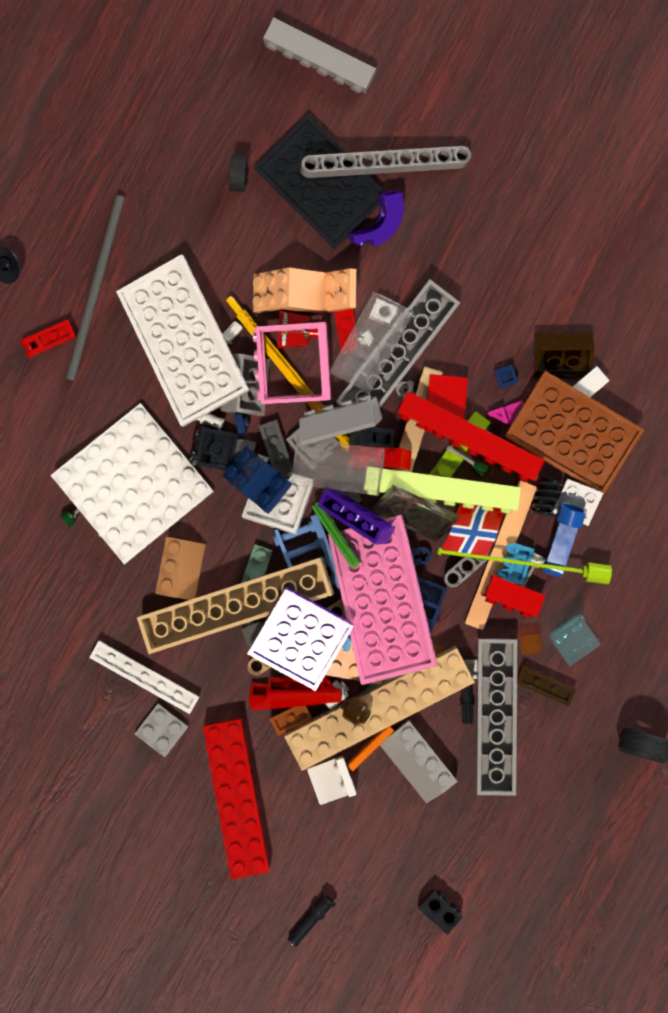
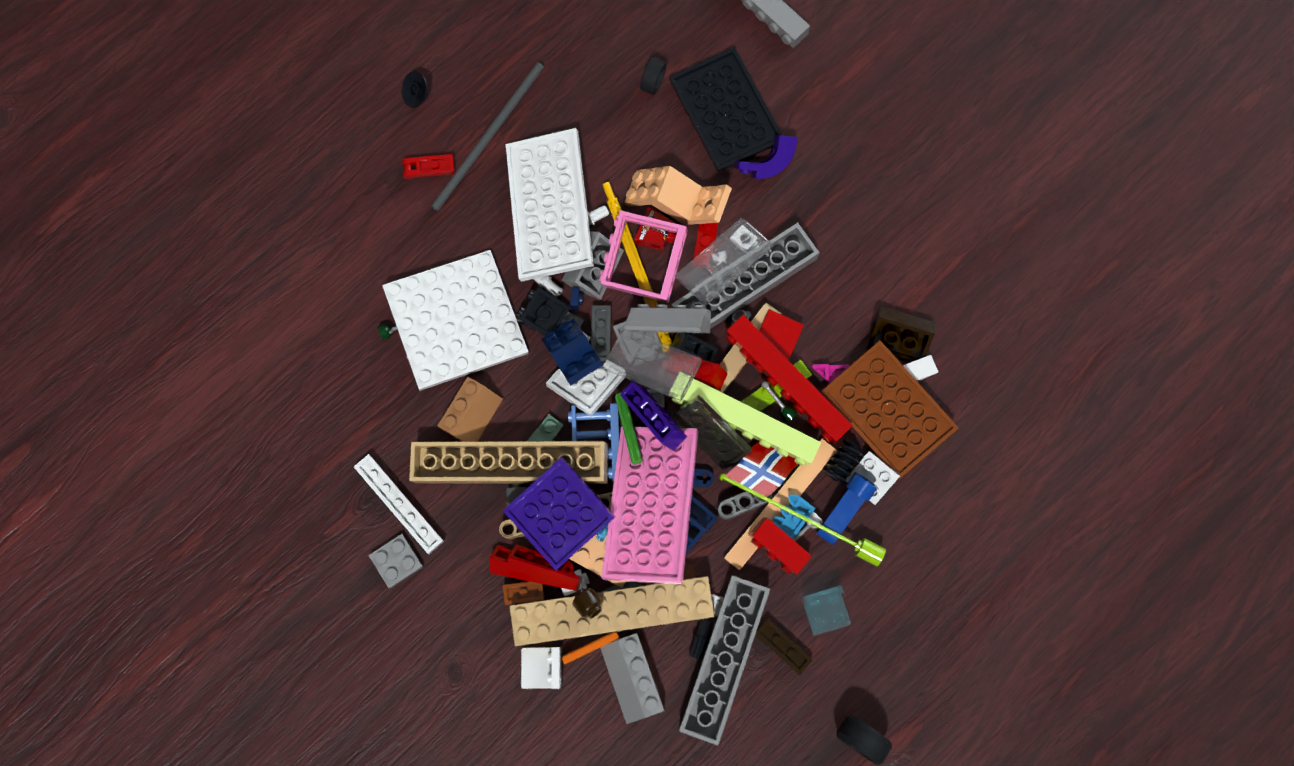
camera: 20 degrees right, 10 degrees down
(236, 798) = (441, 653): red brick -> none
(378, 167) = (783, 111): light grey beam -> none
(505, 376) = (840, 338): dark blue plate -> none
(530, 644) = (782, 600): clear orange slope -> none

